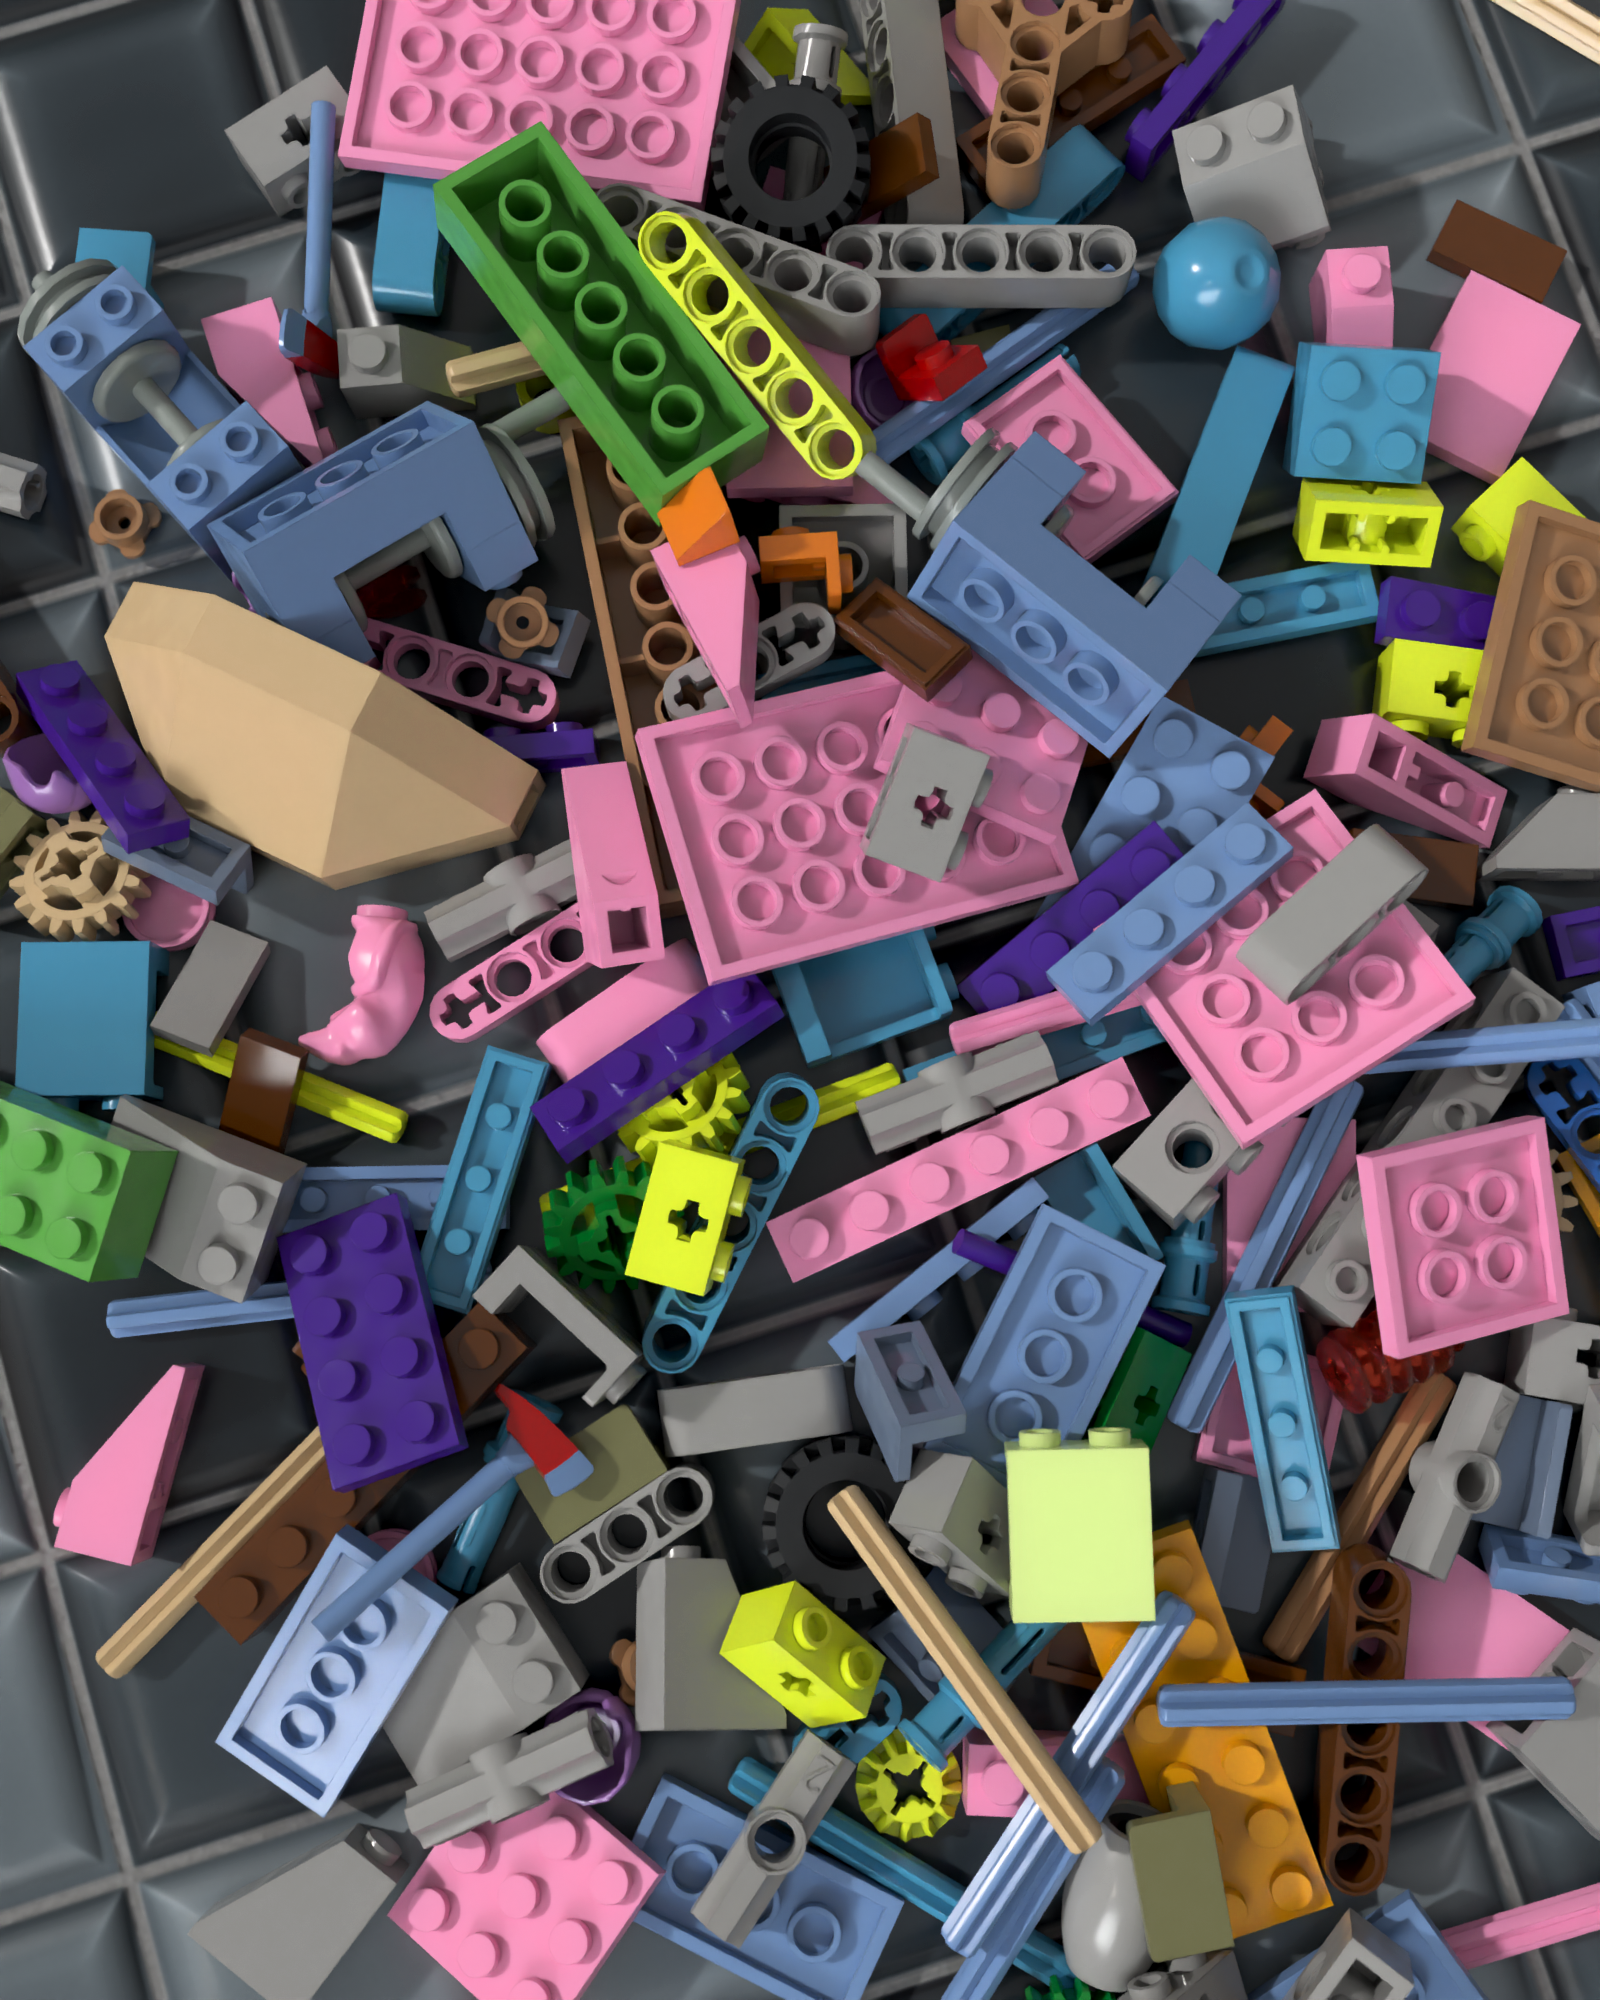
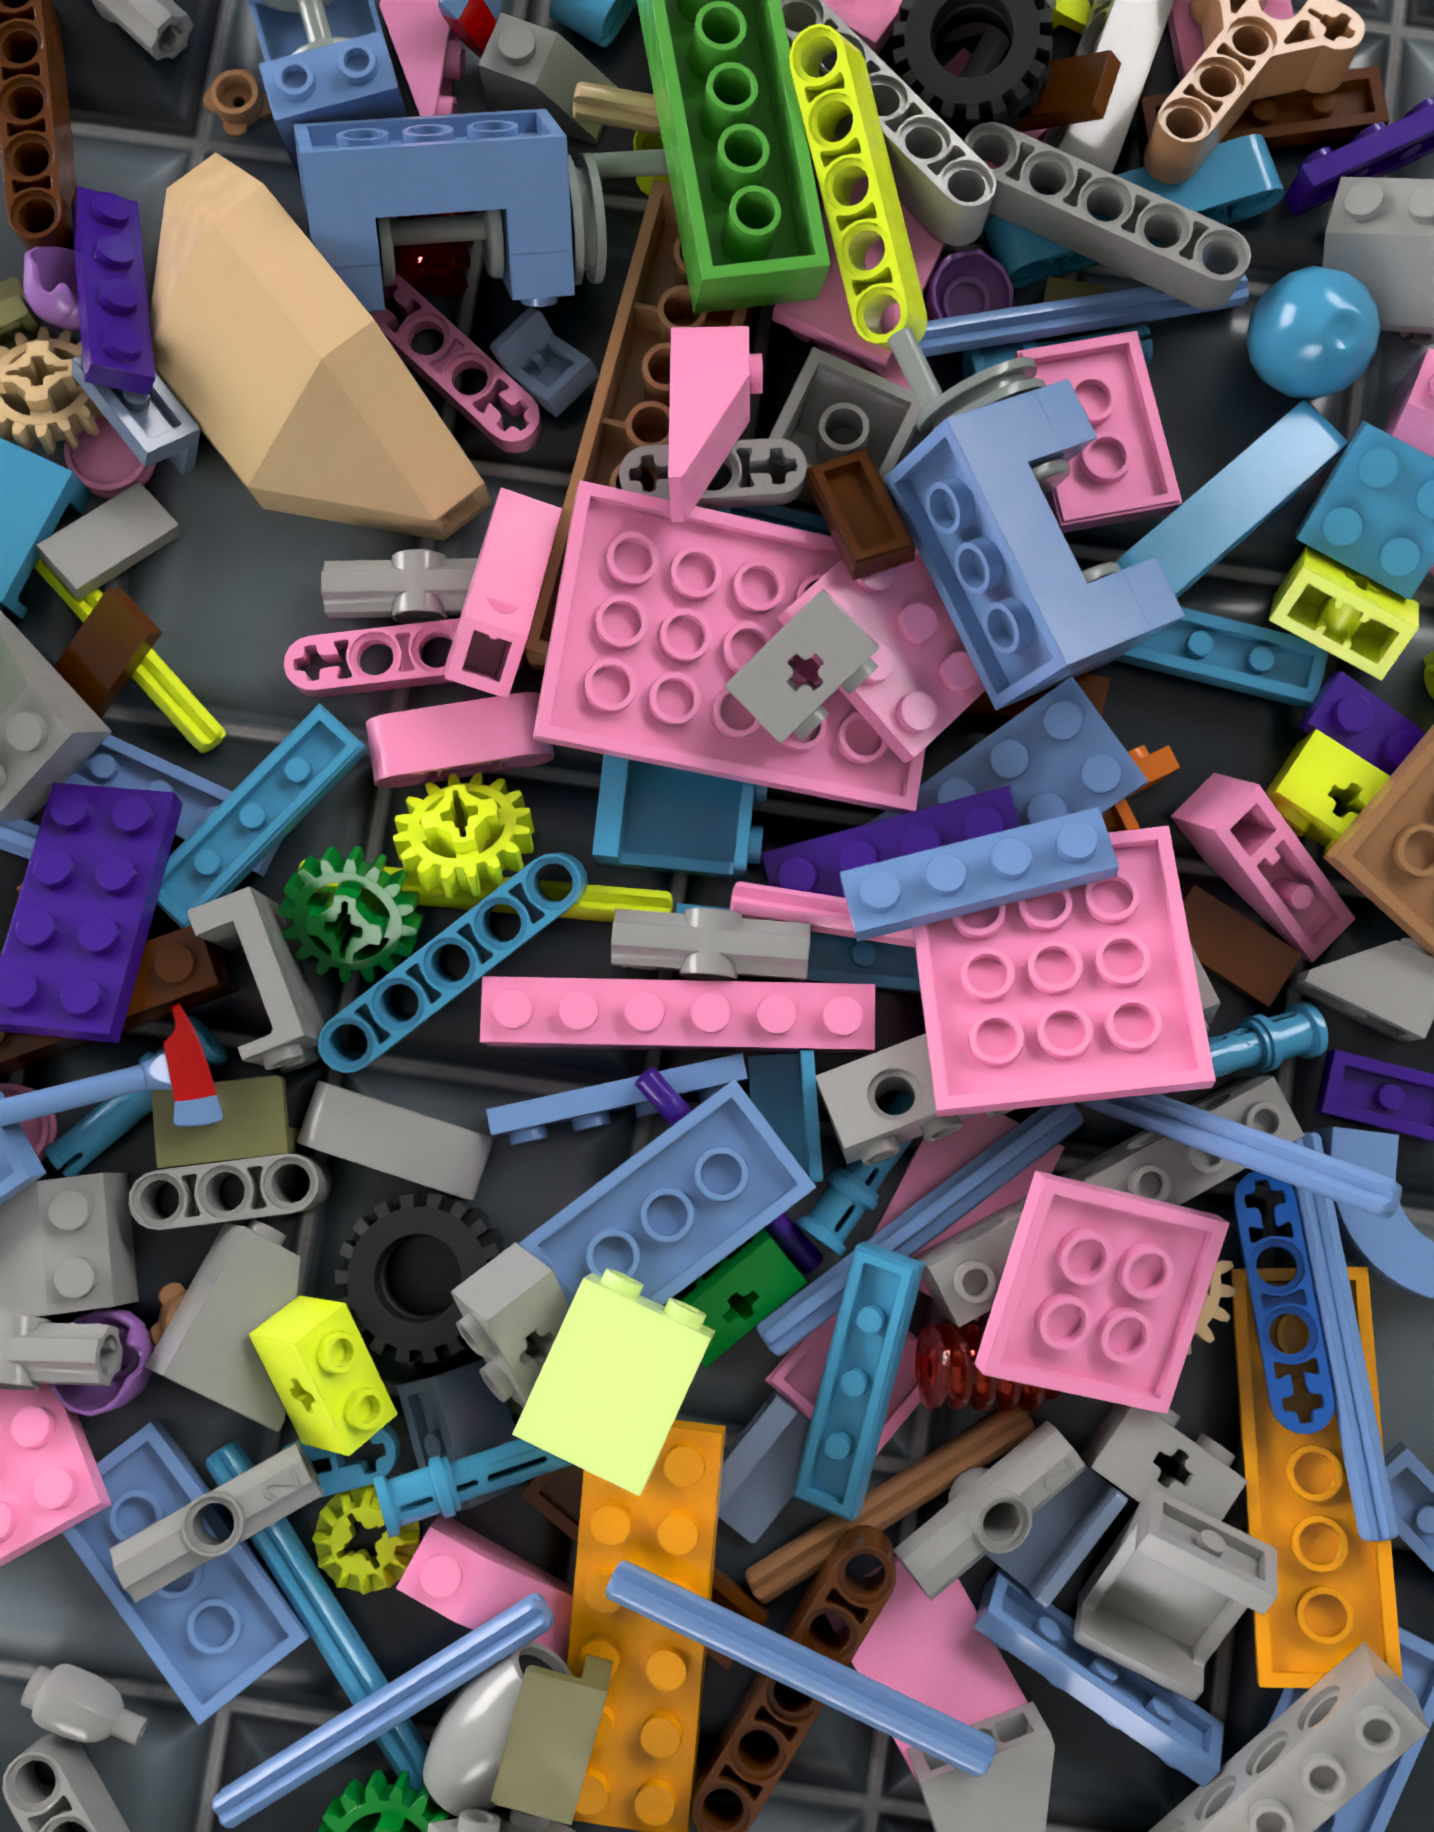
camera: 25 degrees right, 0 degrees up
(387, 989) = (264, 605): bright pink animal -> none
(529, 605) = (525, 331): medium nougat plate -> none
(550, 751) = (514, 471): dark purple plate -> none
(655, 1064) = (455, 789): dark purple plate -> none
(660, 1245) = (377, 945): neon yellow brick -> none
(698, 519) = (725, 318): orange slope -> none
(799, 555) = (809, 399): orange bracket -> none
(905, 1392) = (528, 1184): sand blue panel -> none
(922, 365) = (1007, 282): red bracket -> none
(965, 1670) = (454, 1458): tan axle -> none
(1078, 1760) = (501, 1596): medium blue axle -> none
(1331, 913) = (1121, 941): light grey beam -> none

